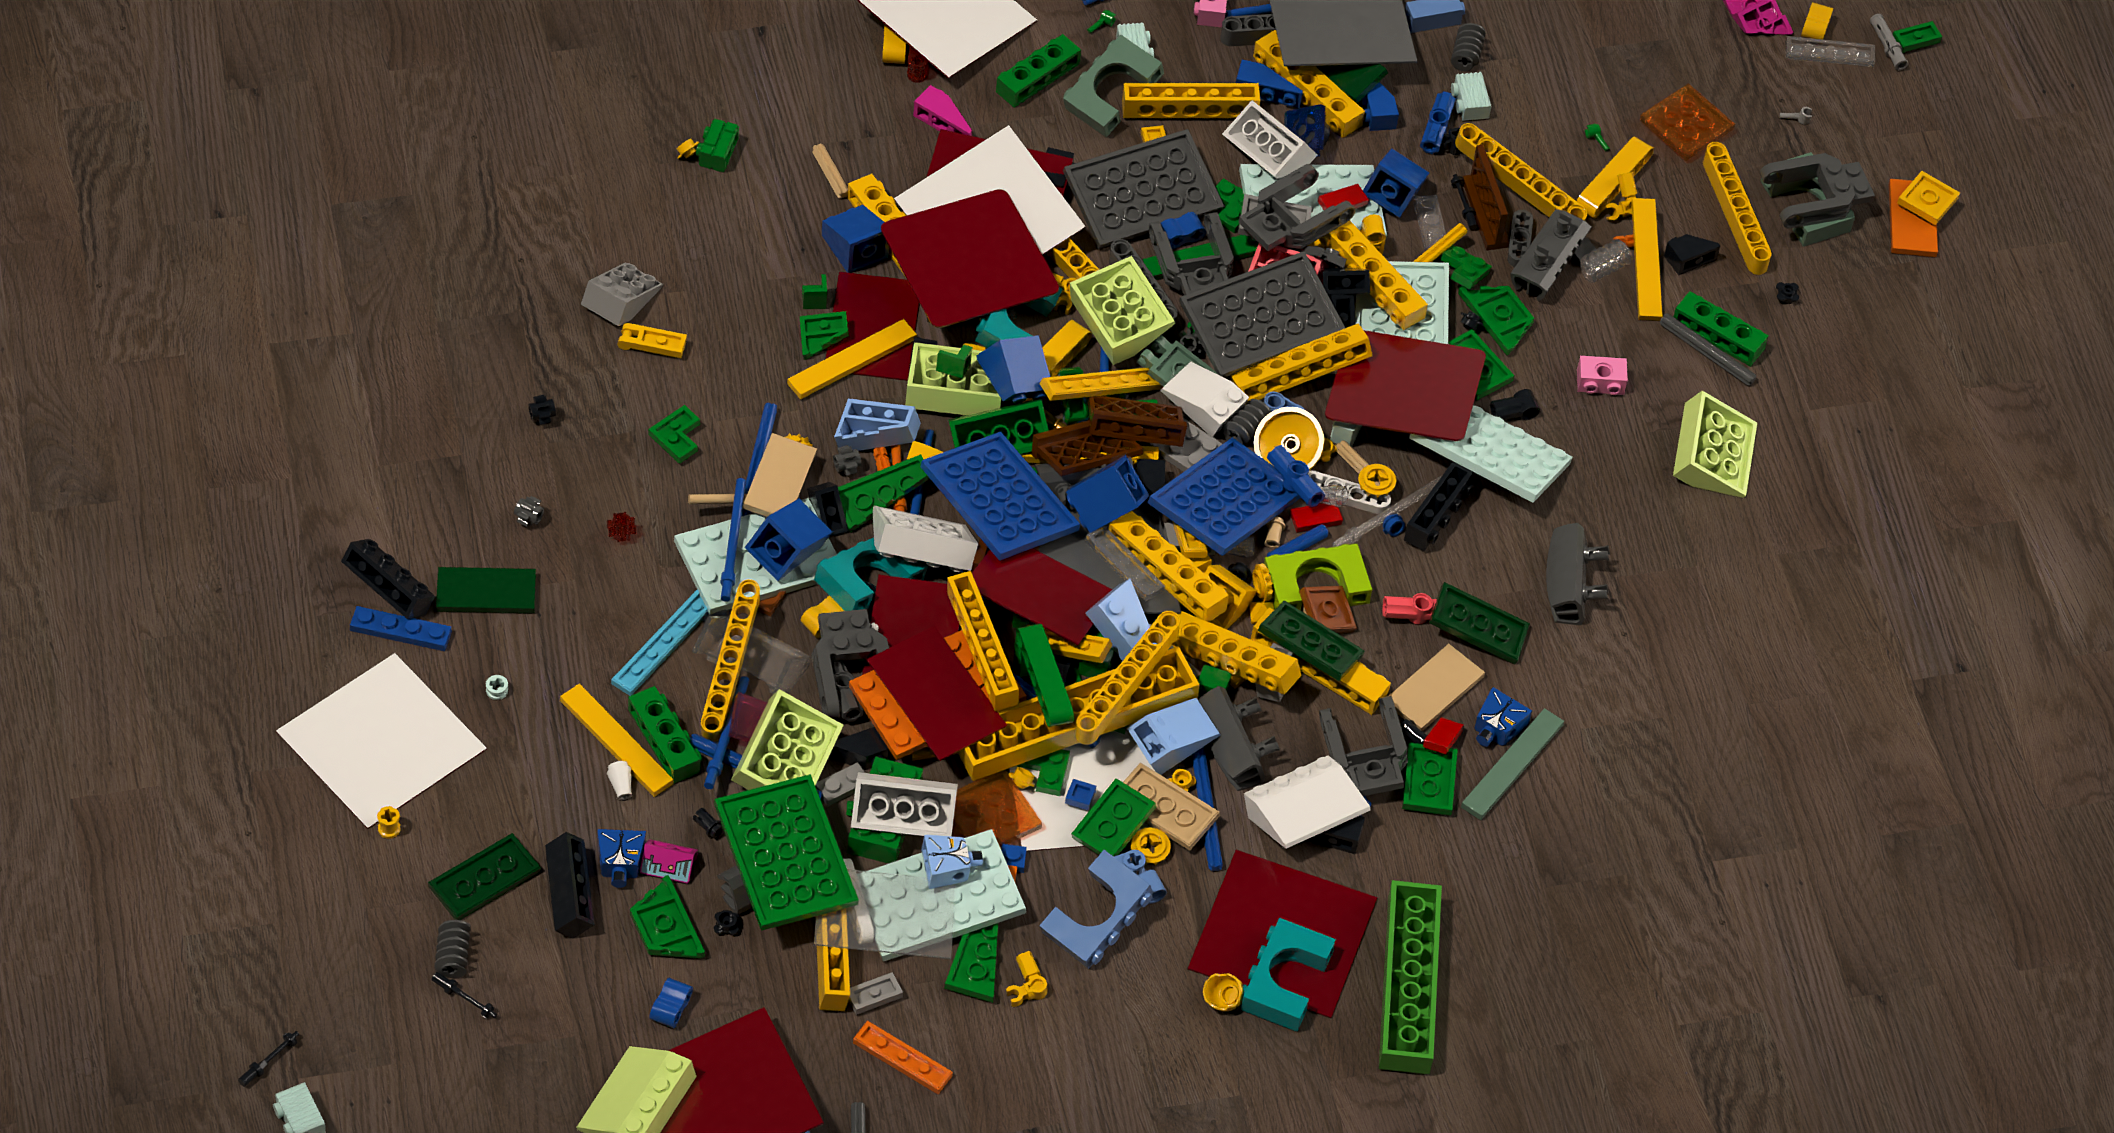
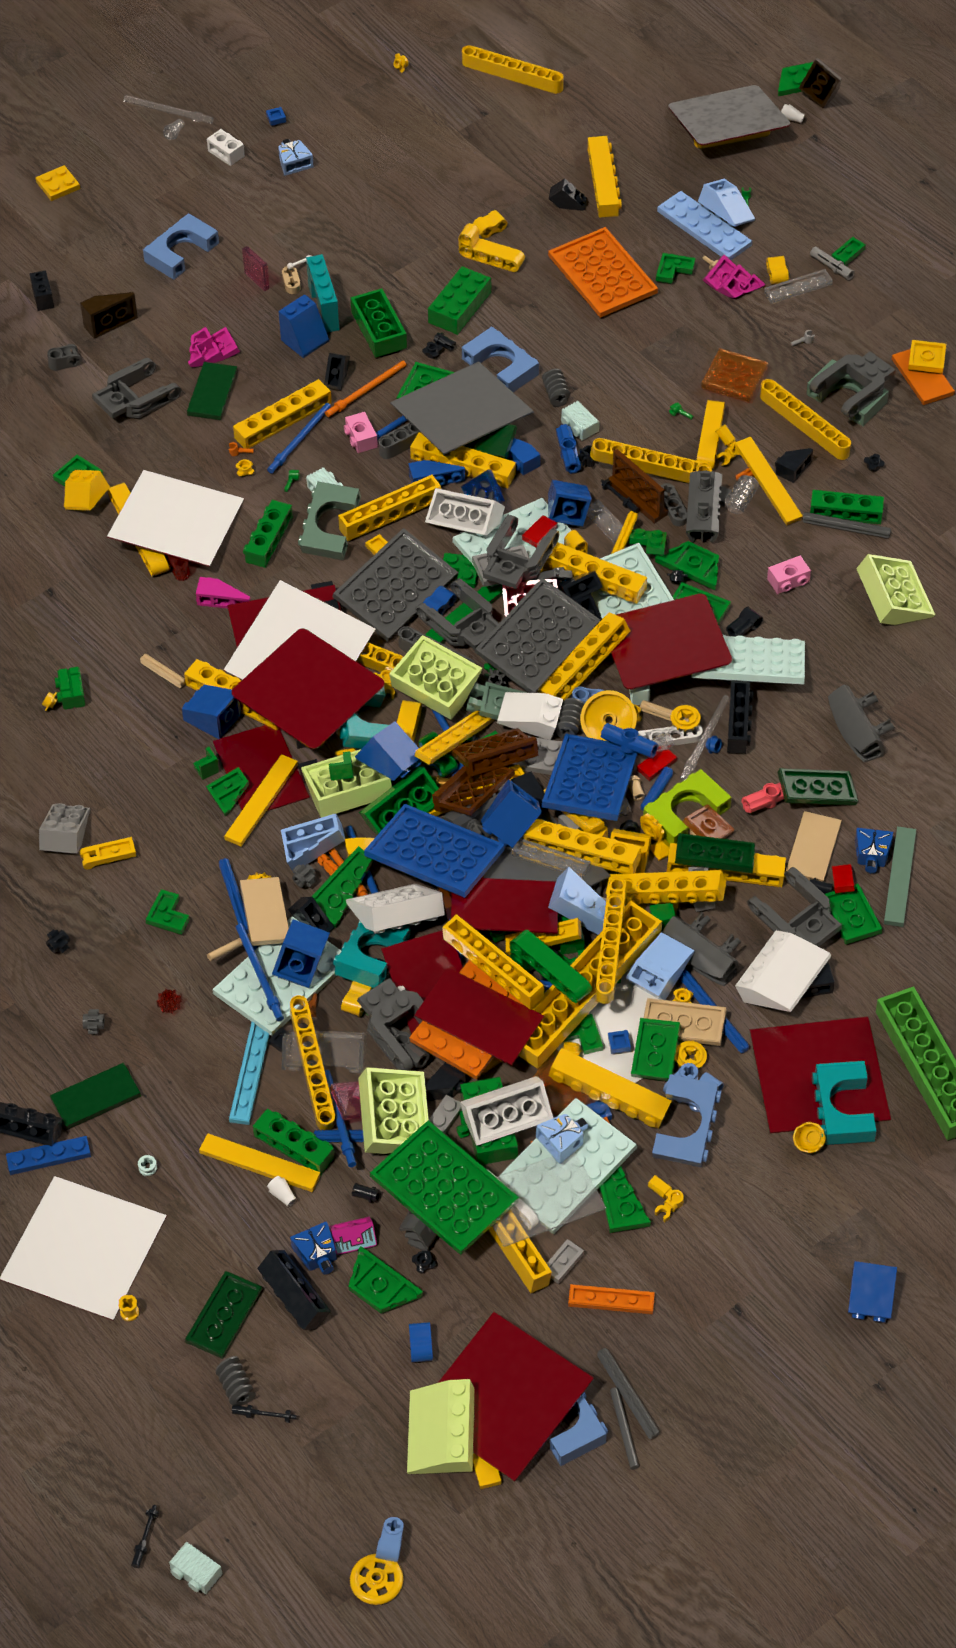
camera: 20 degrees left, 0 degrees up
(1035, 837) = (609, 1088): none -> yellow brick

